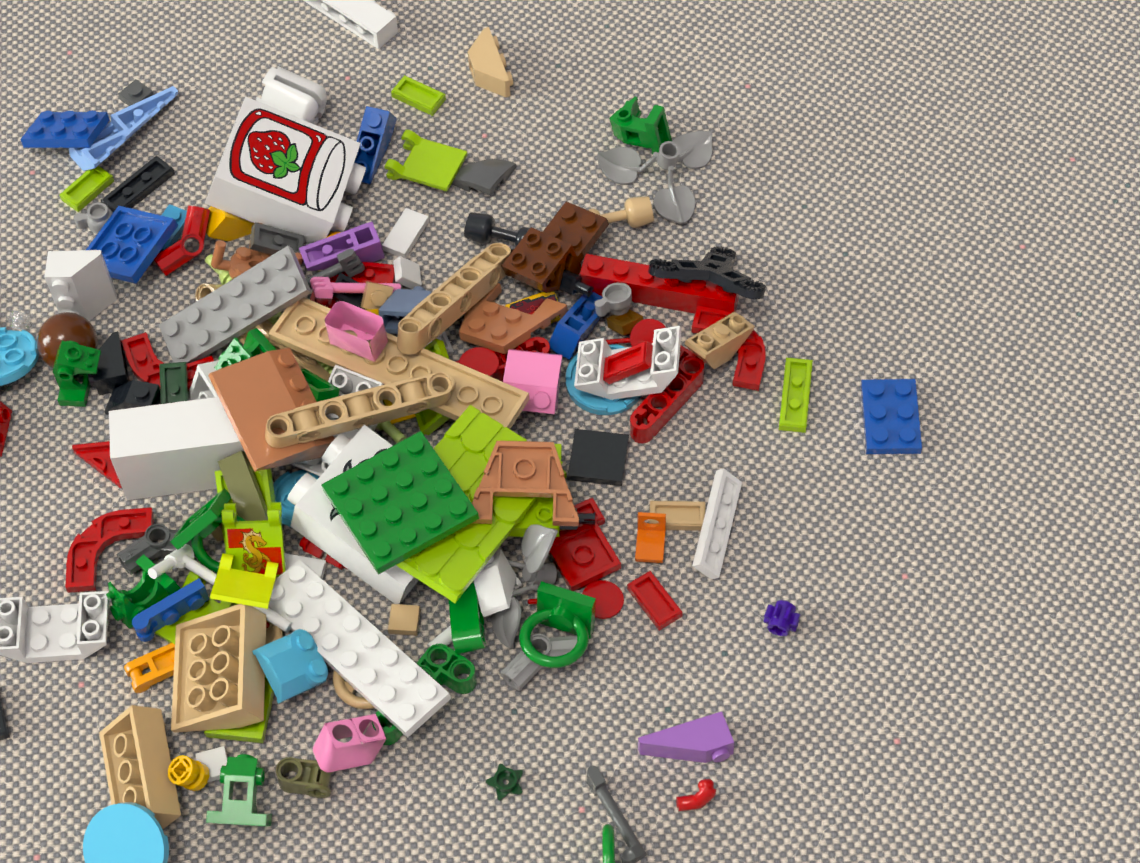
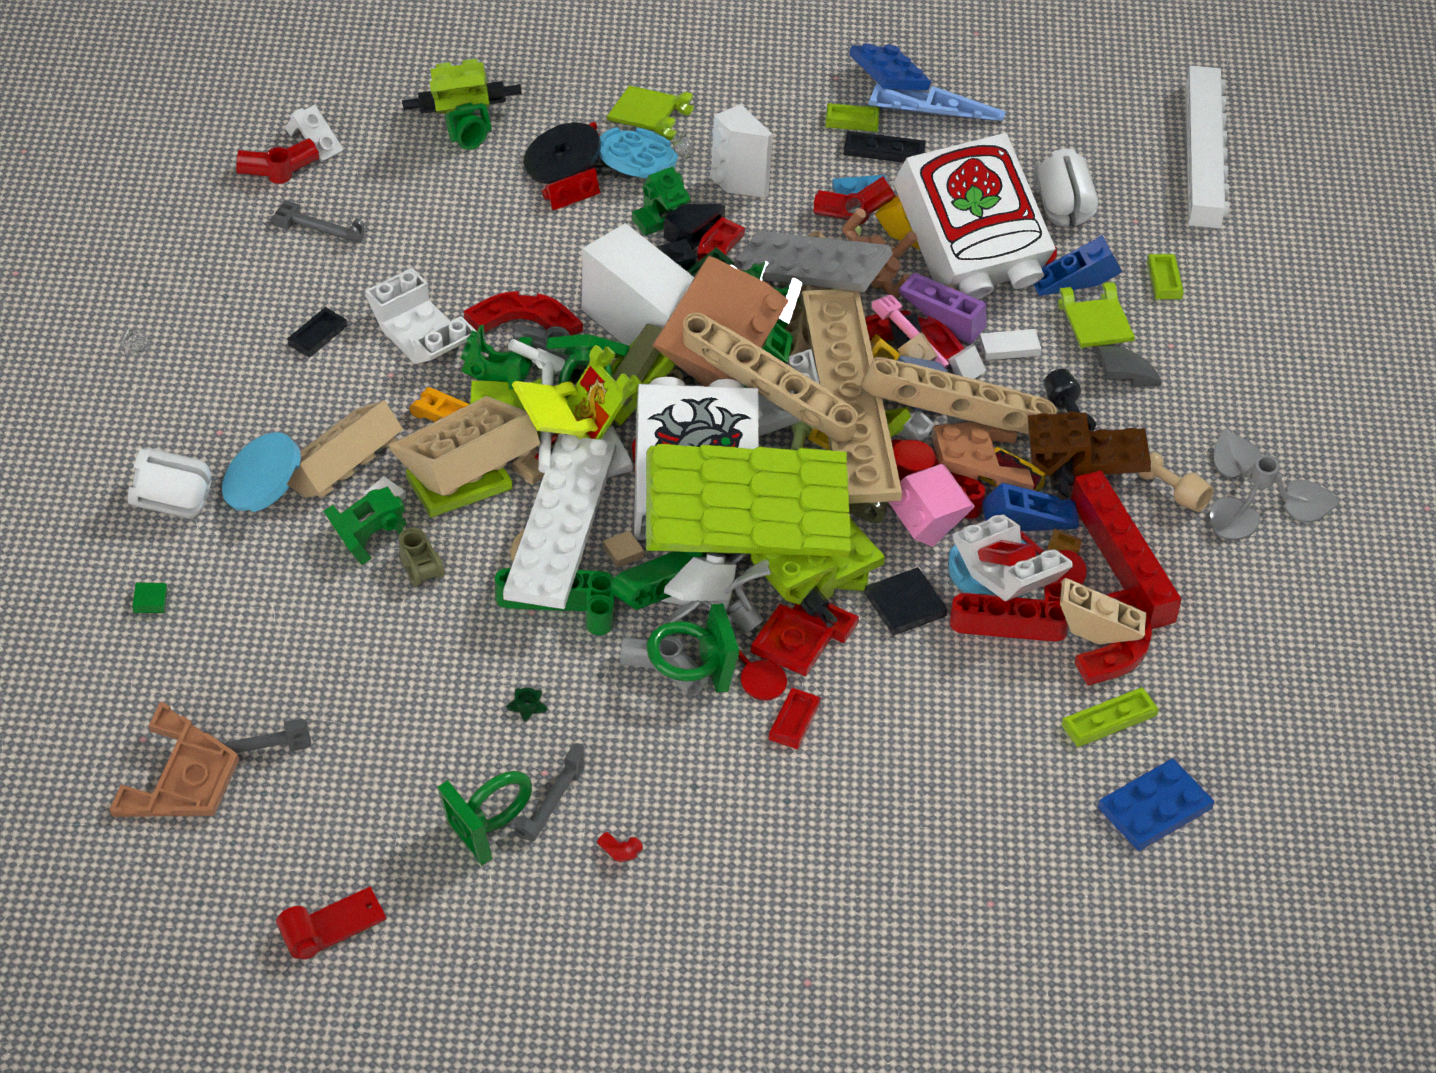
camera: 50 degrees right, 10 degrees down
(64, 327) = (697, 174): reddish brown piece -> none
(94, 218) = (827, 139): light grey piece -> none
(132, 241) = (816, 167): blue plate -> none
(135, 93) = (975, 92): dark grey plate -> none
(169, 610) = (487, 378): blue plate -> none
(188, 773) = (358, 475): yellow wheel -> none
(271, 239) = (908, 254): dark grey plate -> none
(292, 664) = (508, 487): medium azure slope -> none
(338, 755) = (452, 564): bright pink piece -> none
(348, 263) = (928, 310): dark grey hinge -> none
(350, 317) = (851, 322): bright pink piece -> none
(400, 502) = (701, 449): green plate -> none
(488, 65) = (1246, 301): tan slope -> none
(525, 471) = (807, 518): nougat wing -> none
(615, 300) = (1076, 518): light grey piece -> none
(641, 131) = (1288, 433): green tile -> none
(650, 538) = (854, 680): orange bracket -> none
(680, 514) = (897, 691): tan tile -> none
(694, 741) = (676, 817): medium lavender slope -> none
(715, 268) = (1169, 572): black piece -> none
(717, 524) = (911, 721): white plate -> none
(781, 618) = (854, 819): dark purple gear -> none

